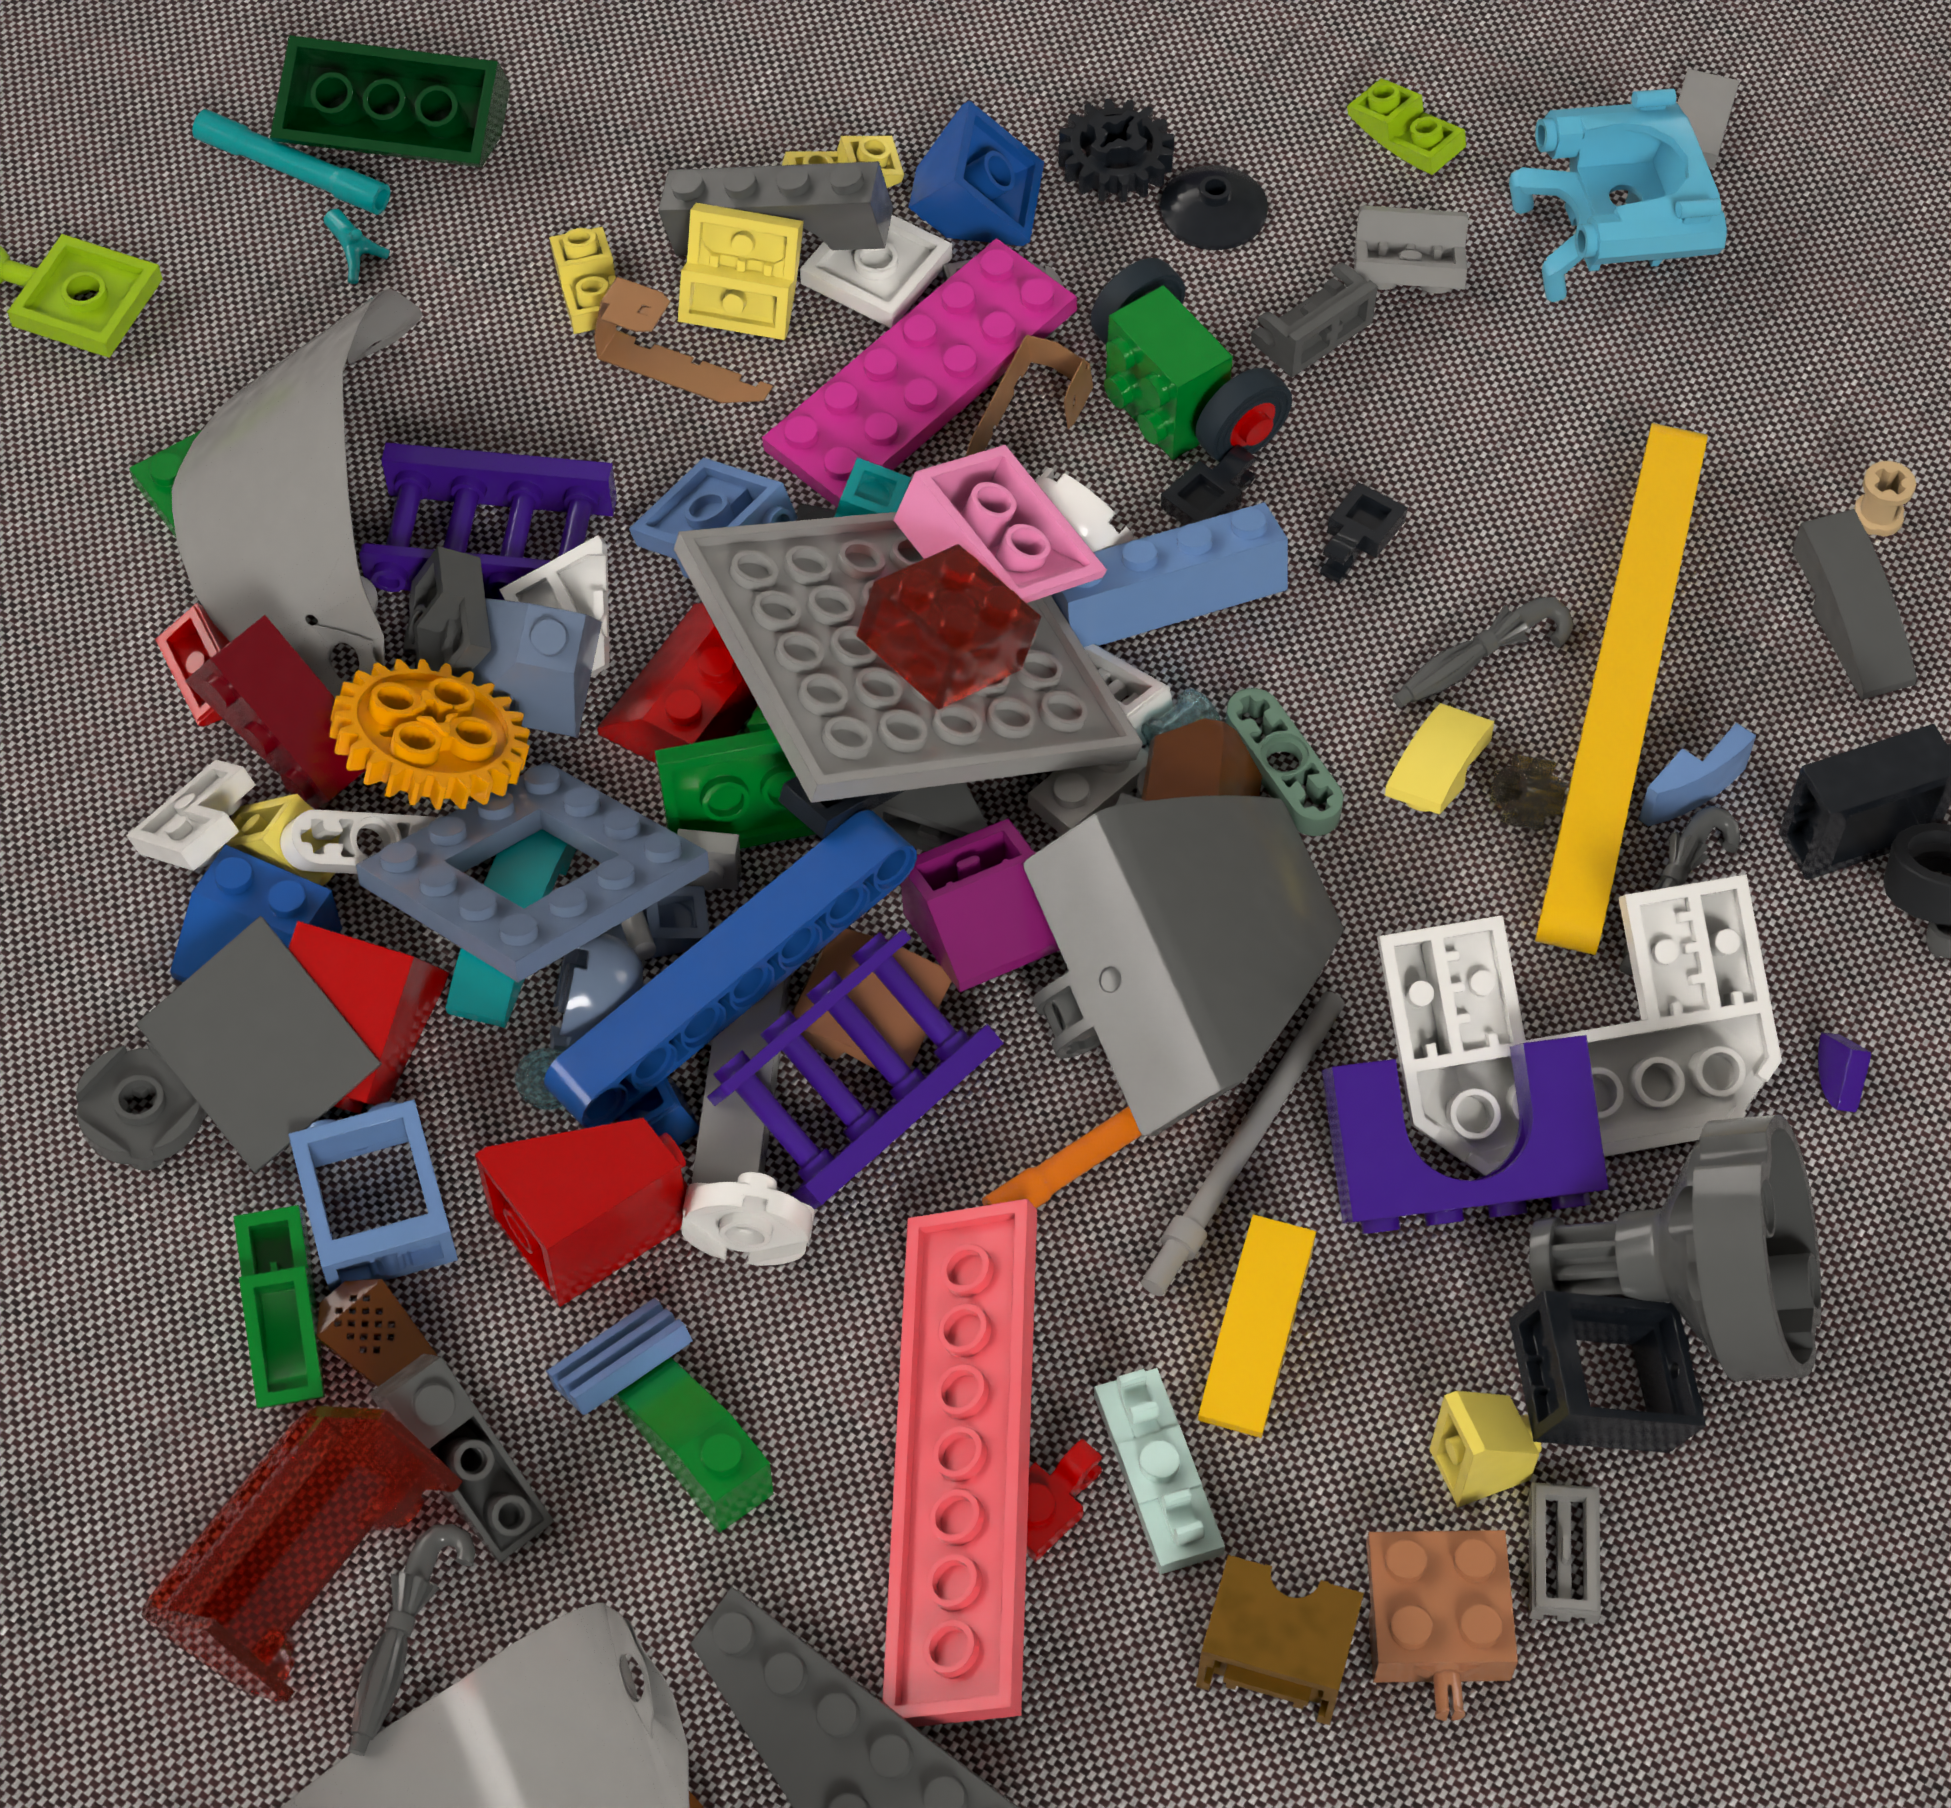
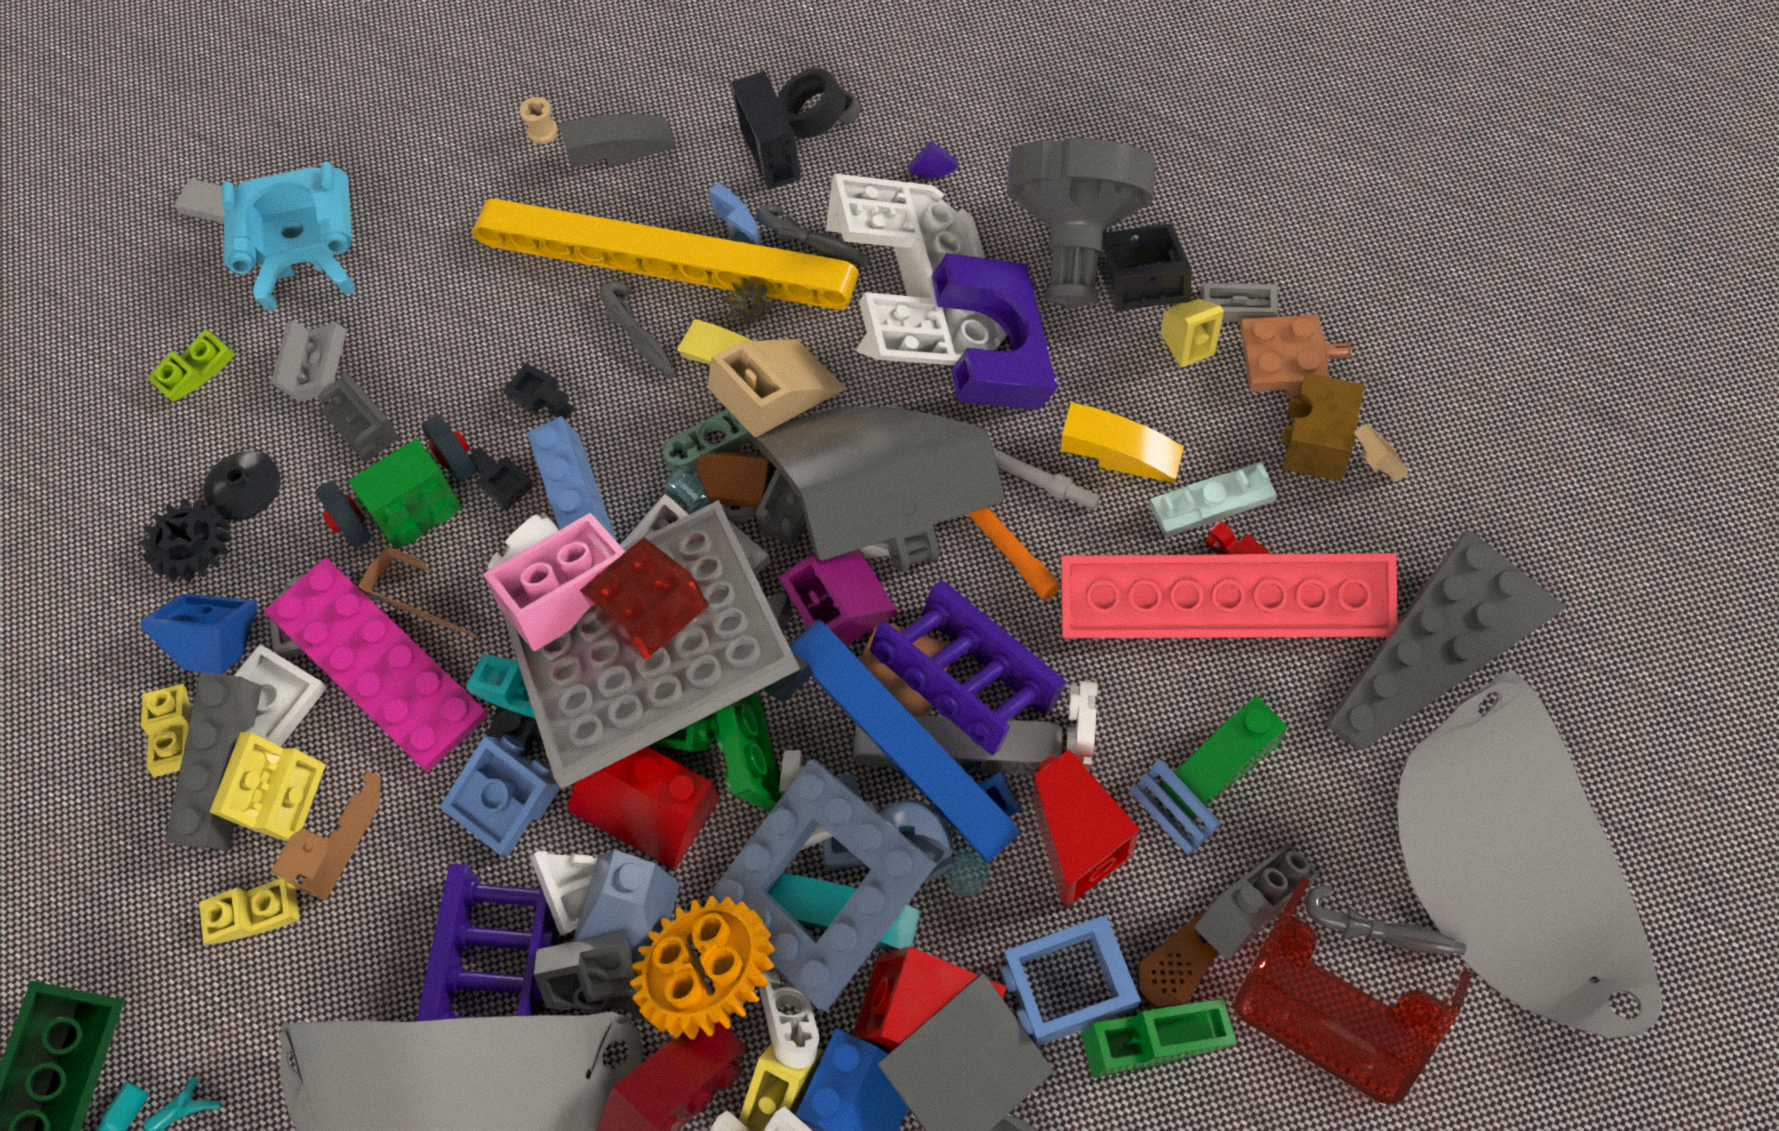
camera: 85 degrees left, 5 degrees up
(1218, 1723) = (1380, 453): none -> tan plate
(1366, 819) = (769, 382): none -> tan slope

